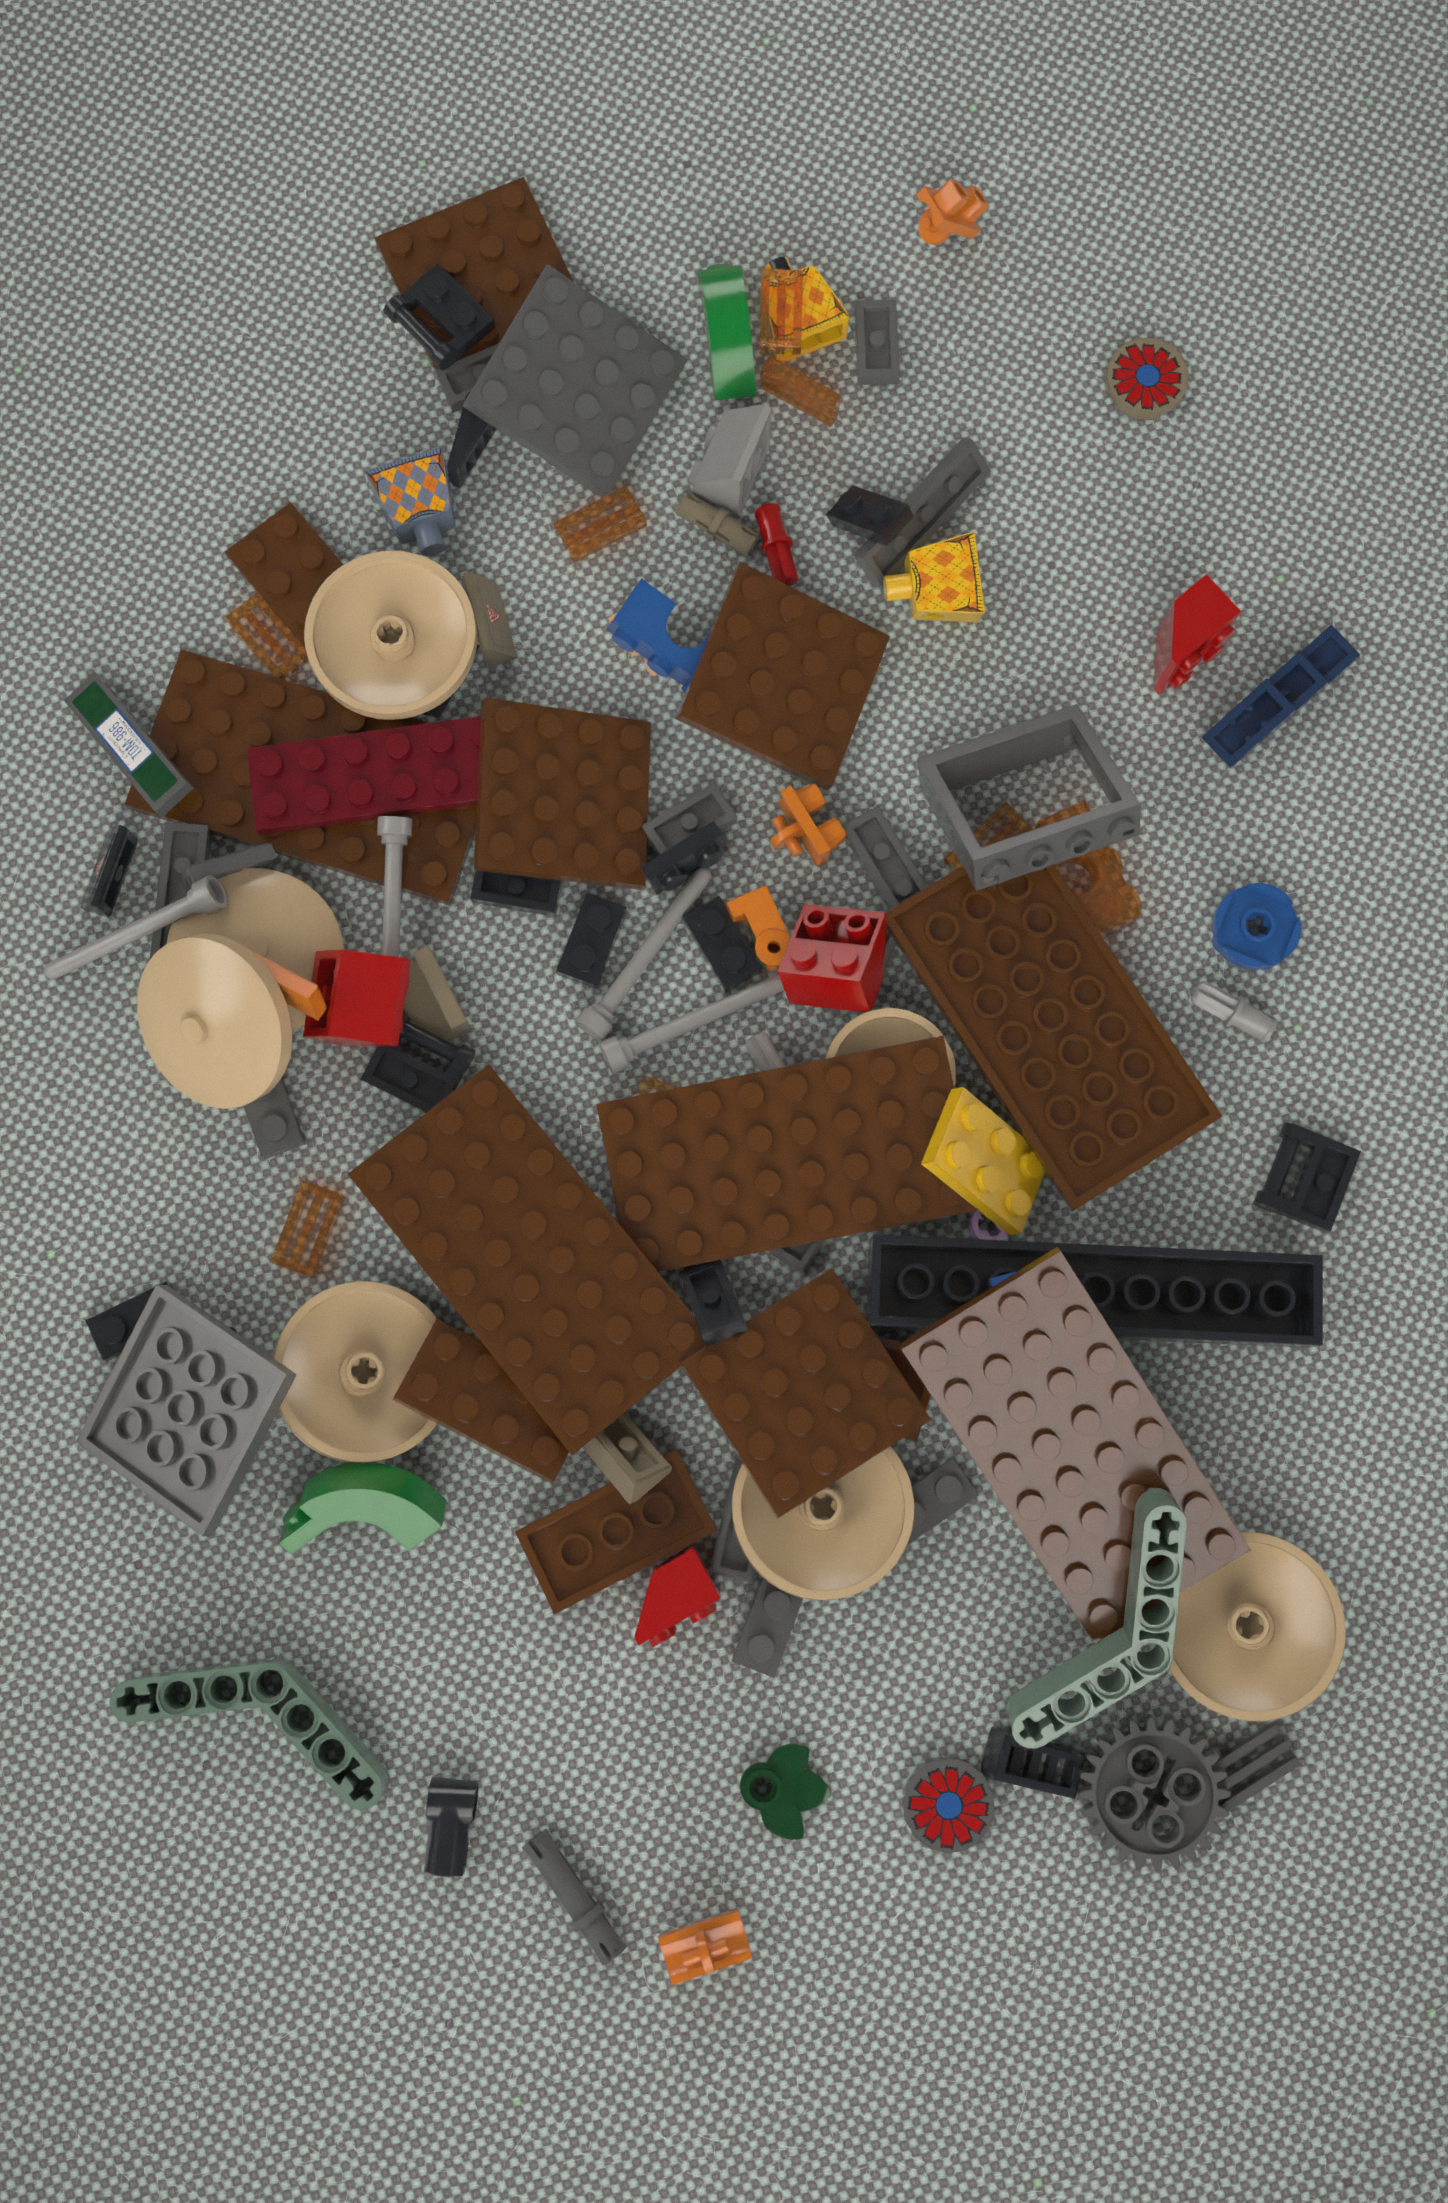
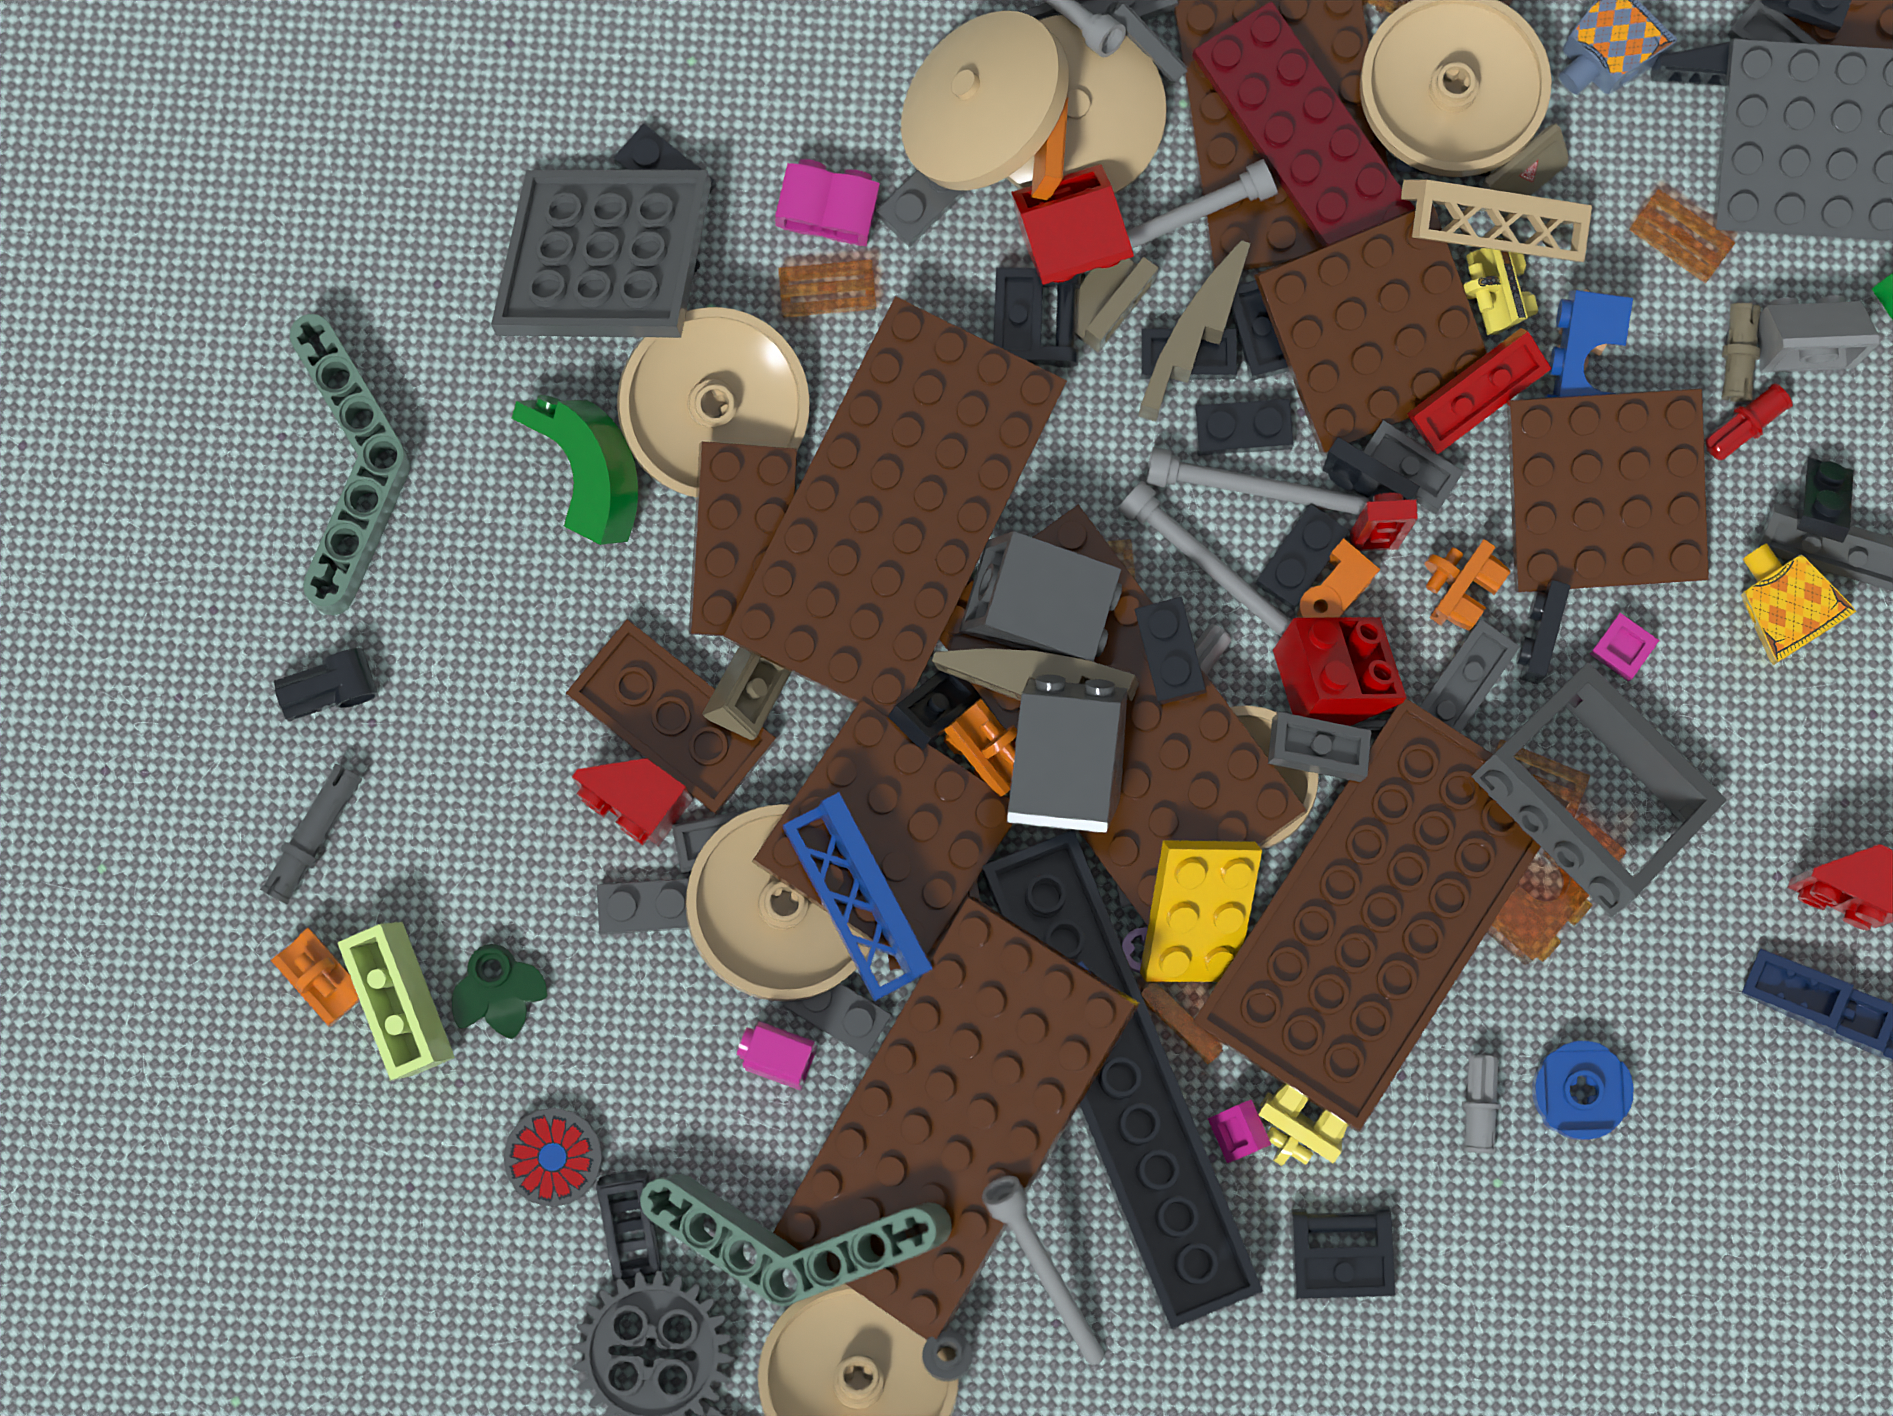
camera: 65 degrees right, 0 degrees up
(234, 1194) = (827, 202): none -> dark pink brick
(490, 927) = (1202, 319): none -> dark tan slope
(509, 650) = (1497, 204): none -> tan fence
(510, 956) = (1211, 361): none -> black plate
(574, 683) = (1498, 289): none -> light yellow hips
(655, 737) = (1479, 391): none -> red plate
(667, 1171) = (1041, 598): none -> dark grey slope
(719, 1219) = (1011, 670): none -> dark tan slope
(733, 861) = (1384, 523): none -> red plate
(757, 1886) = (396, 1000): none -> yellowish green brick
(760, 1084) = (1170, 650): none -> black plate
(768, 1273) = (984, 745): none -> orange hips
(816, 1209) = (1068, 754): none -> dark grey slope
(848, 1426) = (873, 888): none -> blue fence
(886, 792) = (1547, 612): none -> black plate
(896, 1000) = (1319, 747): none -> dark grey plate
(914, 726) = (1624, 647): none -> dark pink plate
(951, 1571) = (777, 1054): none -> dark pink brick
(1066, 1220) = (1181, 1023): none -> clear orange tile
(1174, 1214) = (1239, 1131): none -> dark pink plate
(1174, 1434) = (1007, 1202): none -> light grey piece
(1196, 1167) = (1320, 1136): none -> light yellow hips
(1277, 1553) = (942, 1369): none -> dark grey plate

